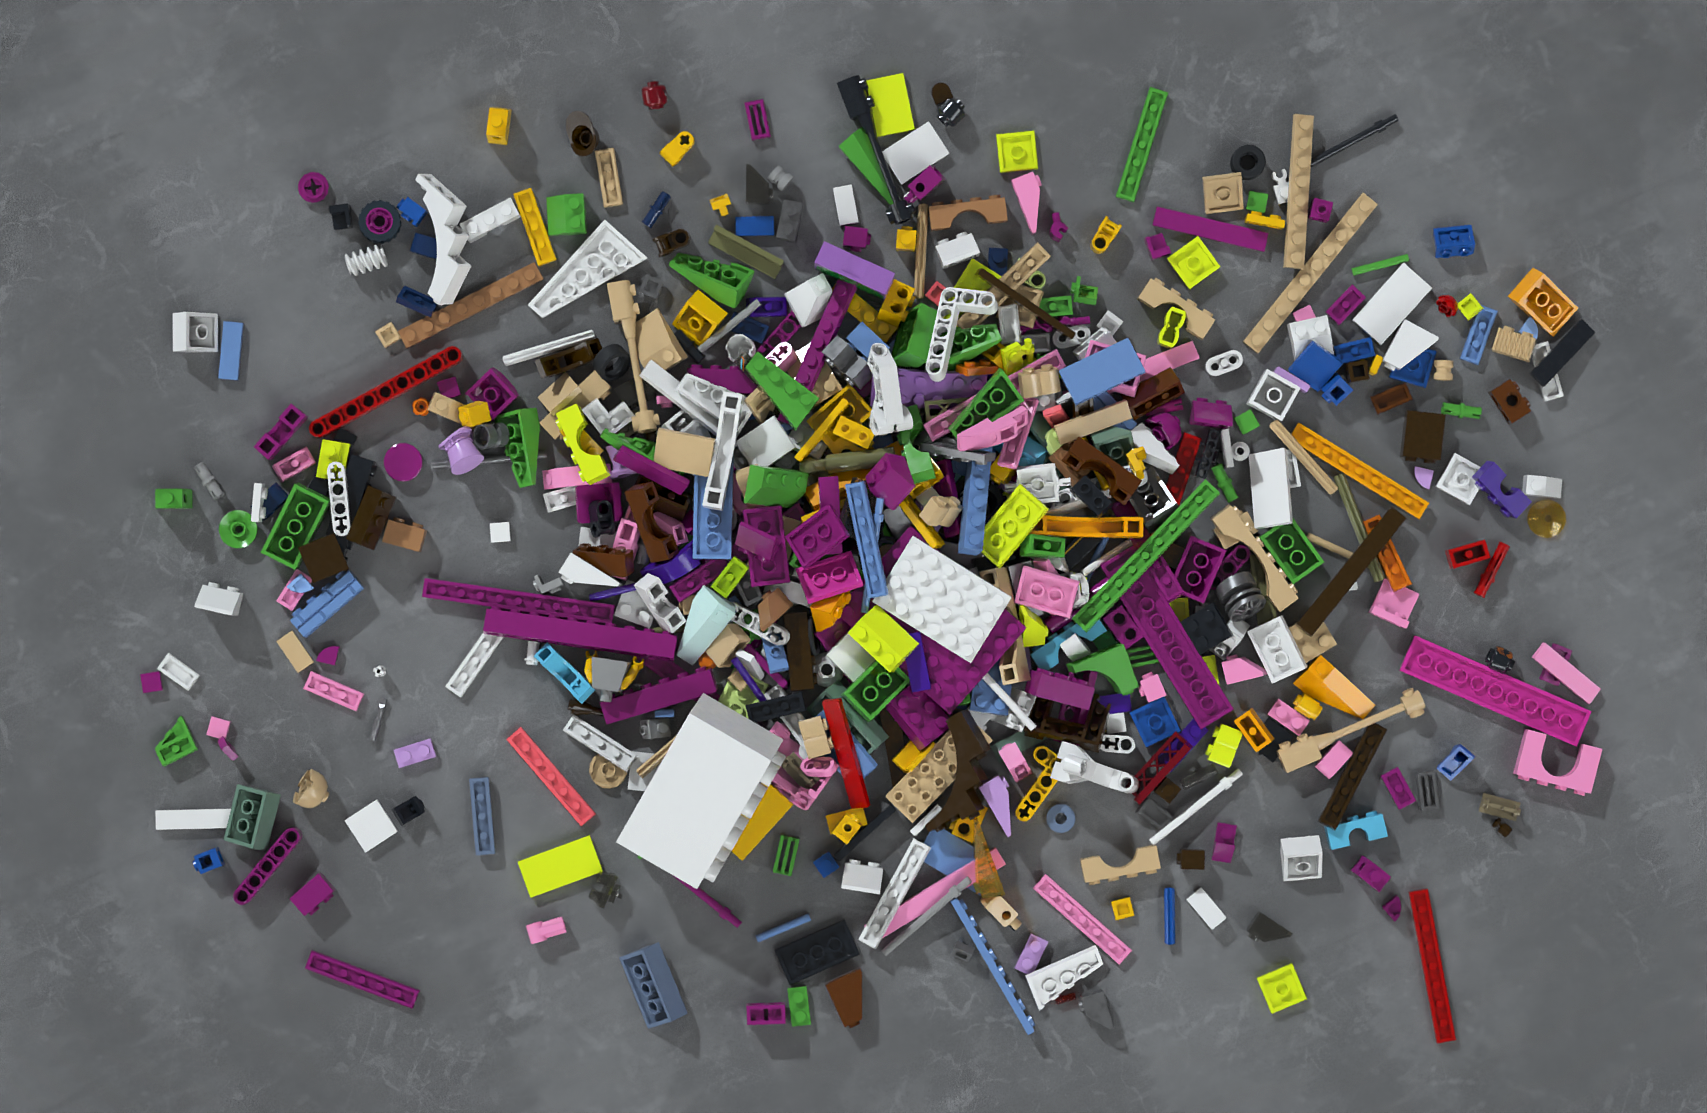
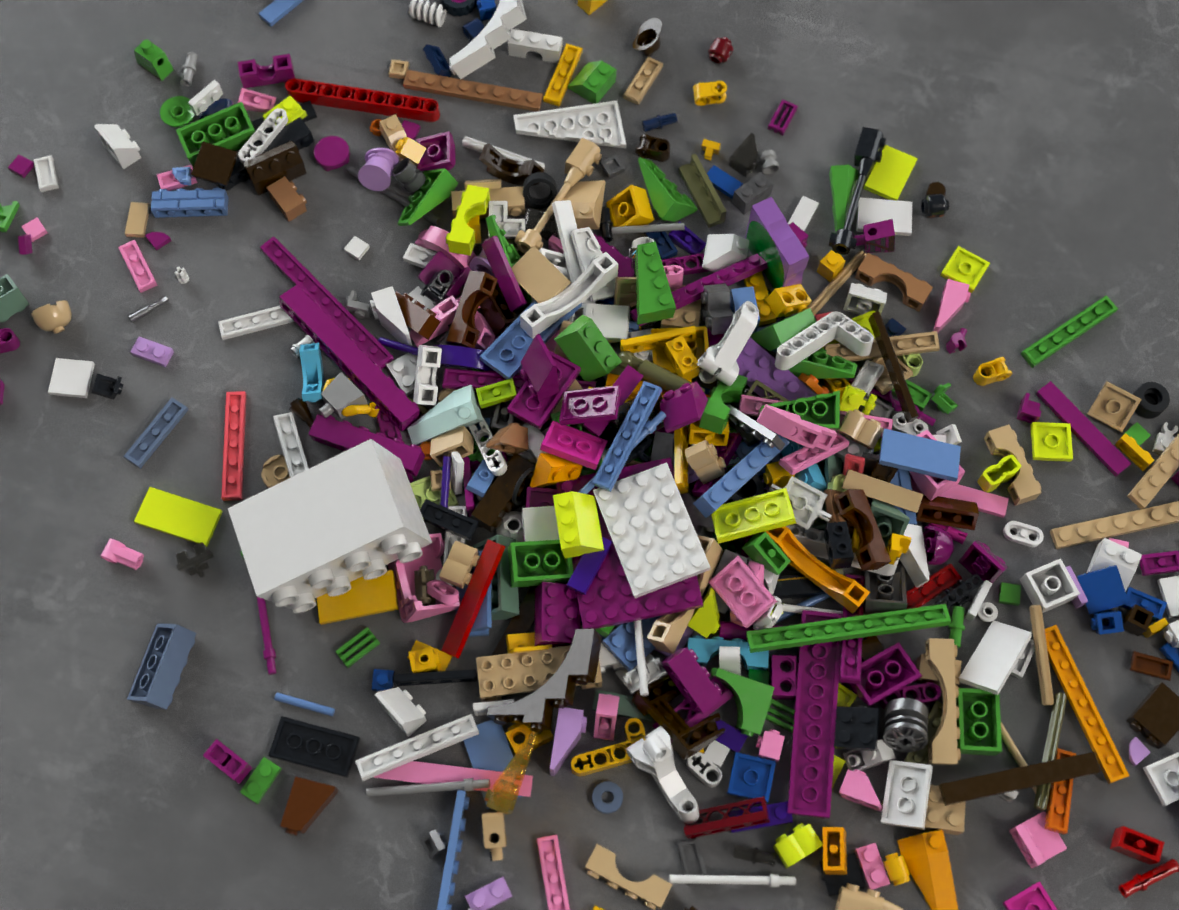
camera: 35 degrees right, 20 degrees down
(1167, 790) = (718, 844): dark brown brick -> none

